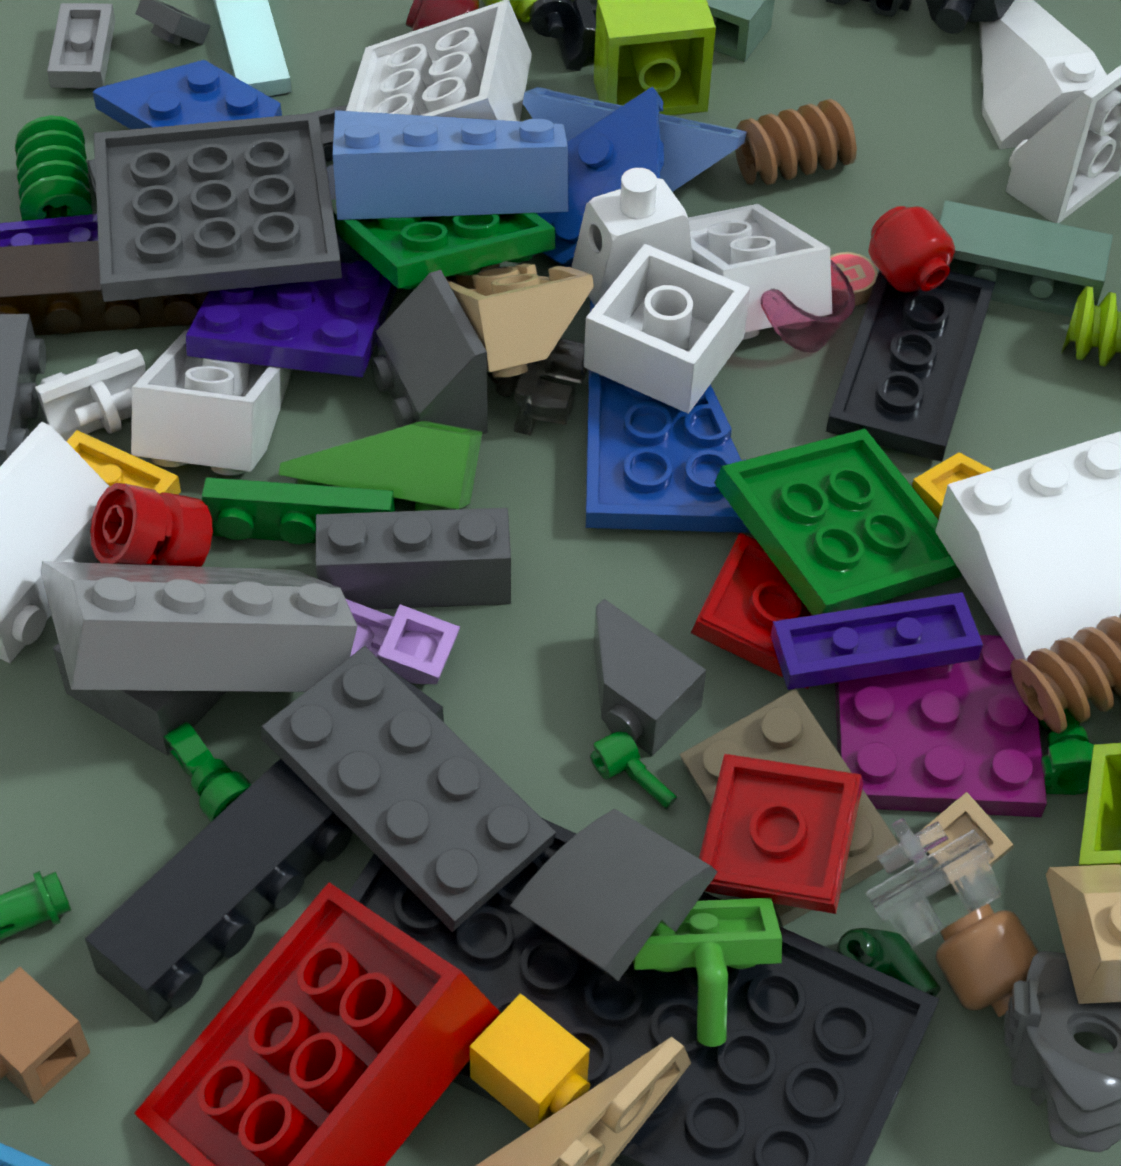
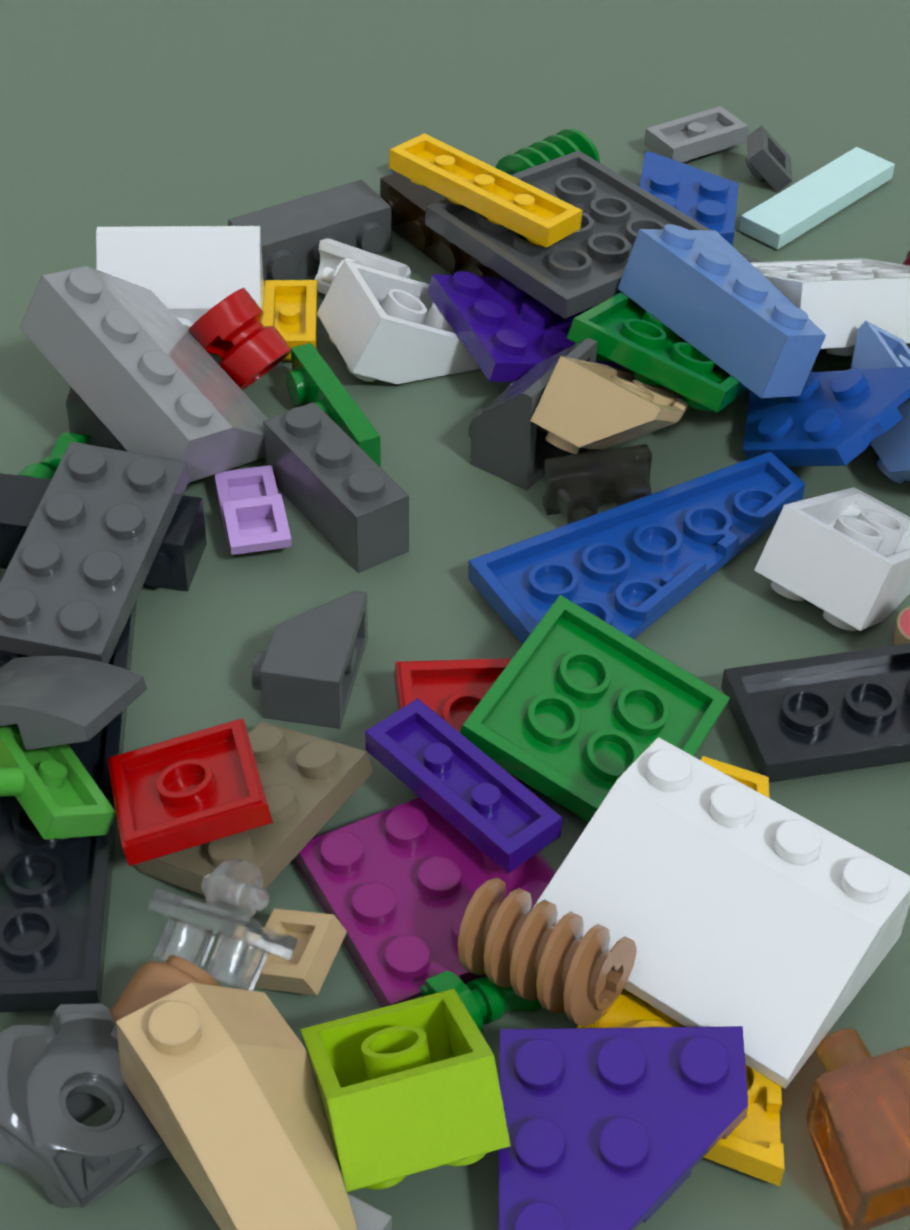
camera: 60 degrees right, 10 degrees down
(133, 228) = (485, 190): none -> yellow plate
(416, 462) = (427, 444): bright green slope -> none
(619, 754) = (234, 685): green hand -> none
(624, 220) = (773, 445): white torso -> none
(666, 327) = (690, 504): white brick -> none
(802, 328) = (823, 628): clear pink helmet -> none
(888, 954) = (134, 940): dark green arm -> none

